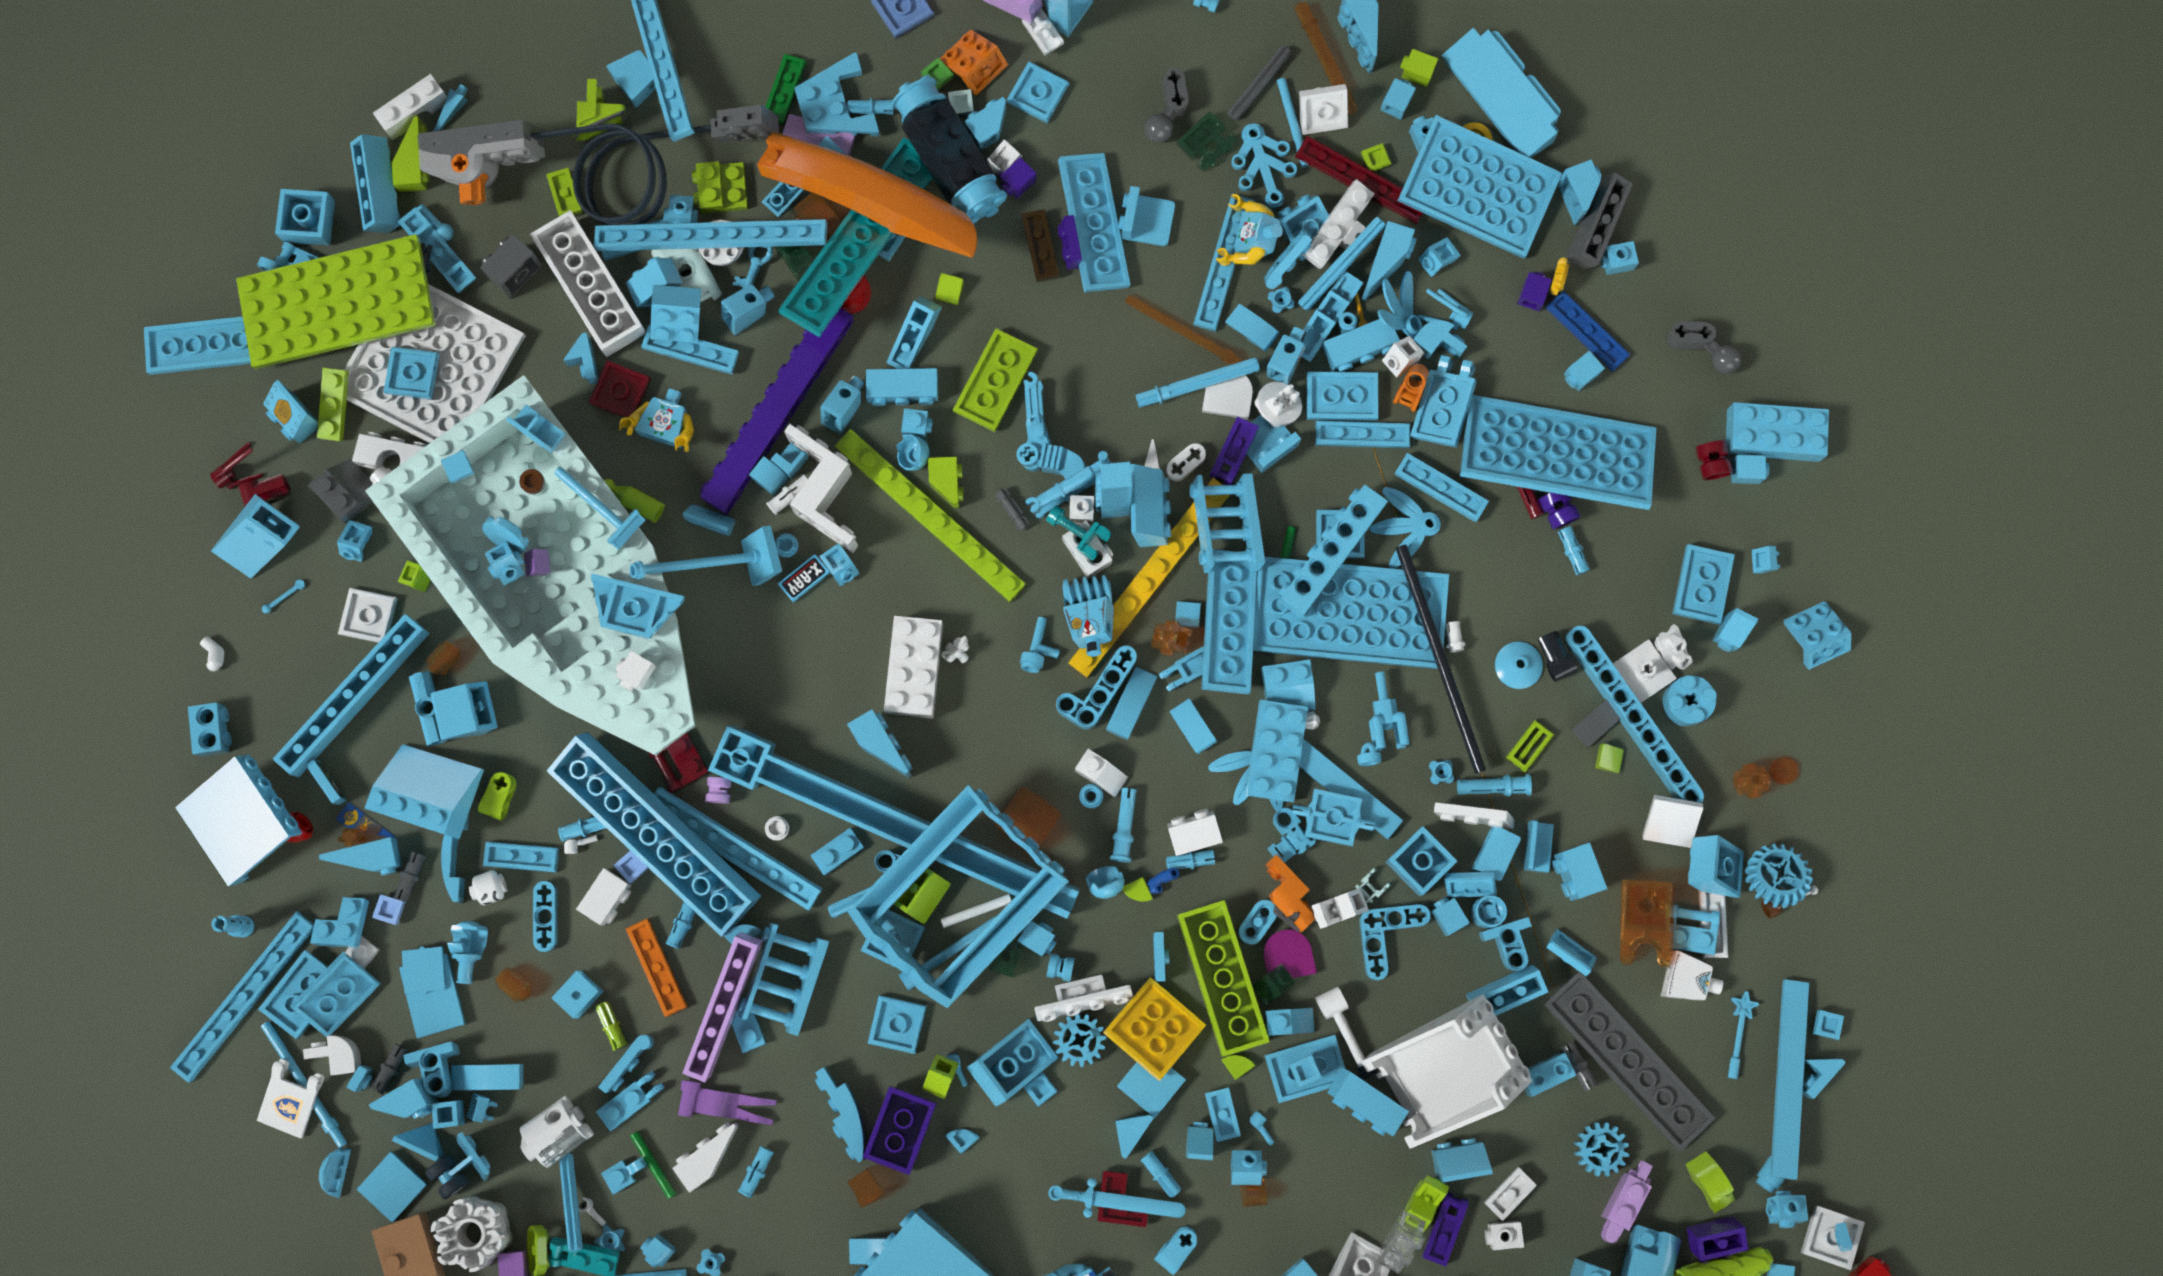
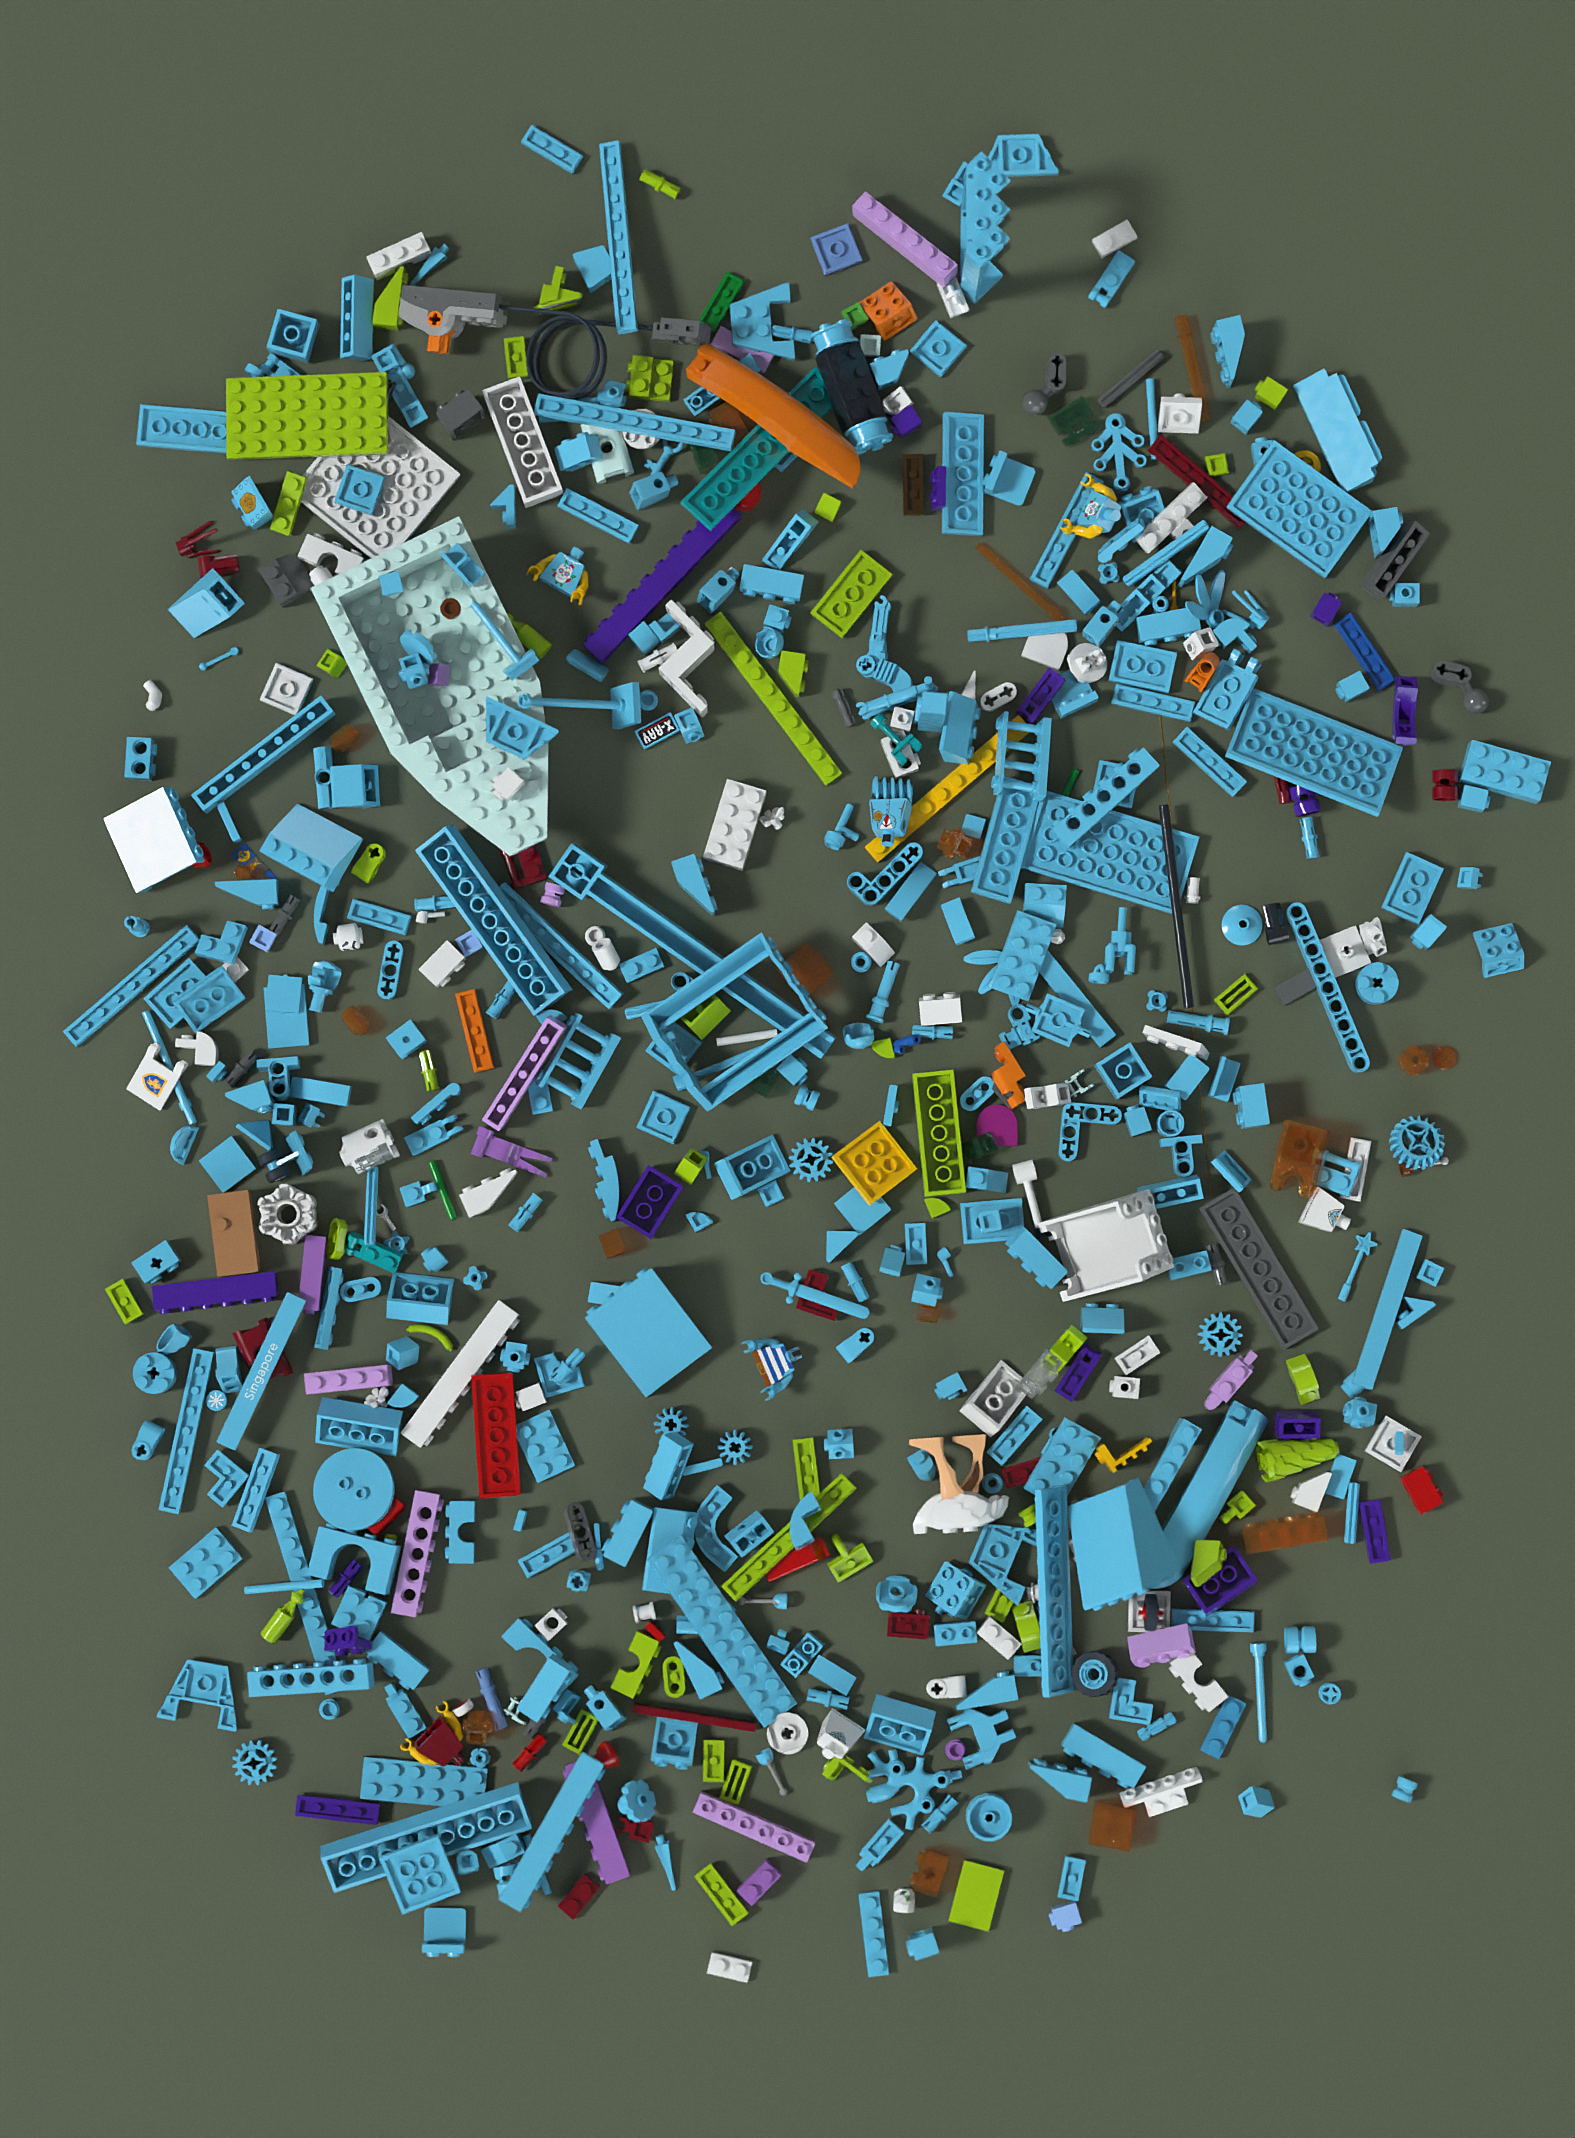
camera: 15 degrees right, 5 degrees up
(354, 540) = (286, 623): medium azure bracket -> none
(619, 390) = (532, 539): dark red plate -> none
(675, 313) = (592, 484): medium azure brick -> none
(793, 846) = (606, 954): none -> white brick
(1082, 996) = (820, 1124): white bracket -> none
(1414, 524) = (1167, 787): medium azure plant -> none
(1438, 256) = (1251, 562): medium azure bracket -> none
(1559, 276) = (1350, 601): yellow gear -> none
(1609, 758) = (1300, 1018): lime slope -> none
(1648, 386) = (1404, 710): none -> dark purple arch
(1672, 821) = (1339, 1080): white tile -> none
(1716, 866) = (1367, 1124): medium azure slope -> none

